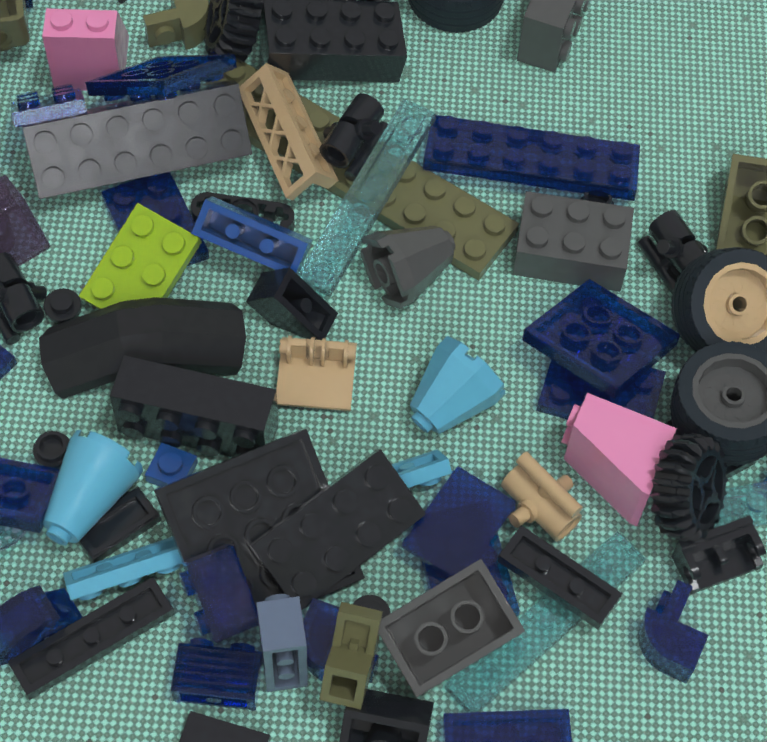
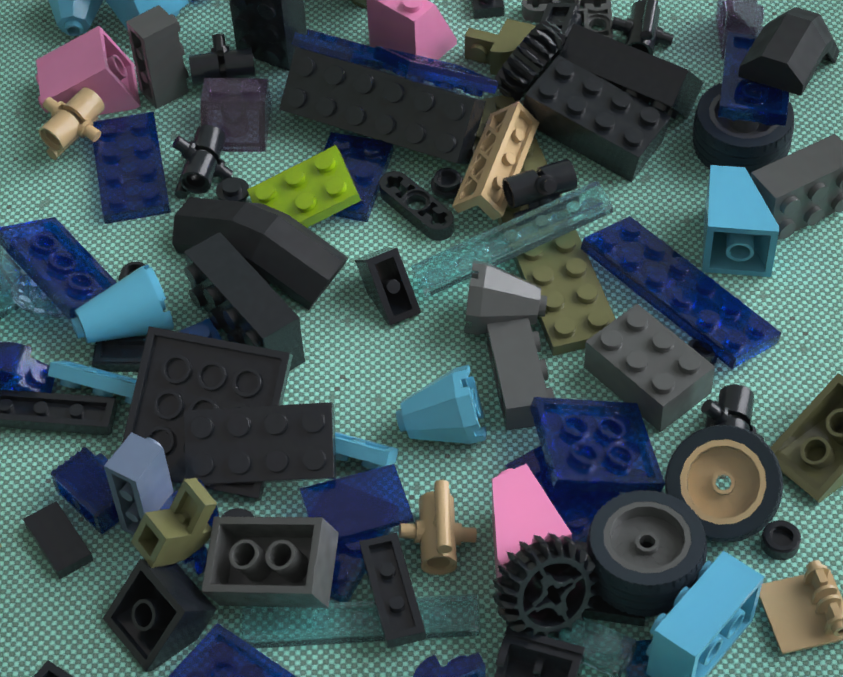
camera: 45 degrees right, 10 degrees down
(220, 593) = (138, 413): clear blue brick -> none
(251, 178) = (446, 183): none -> black plate
(251, 235) = (398, 215): blue brick -> none
(316, 373) = (362, 340): tan hinge -> none
(474, 315) = (517, 370): none -> dark grey brick
(533, 70) = (738, 225): none -> medium azure slope

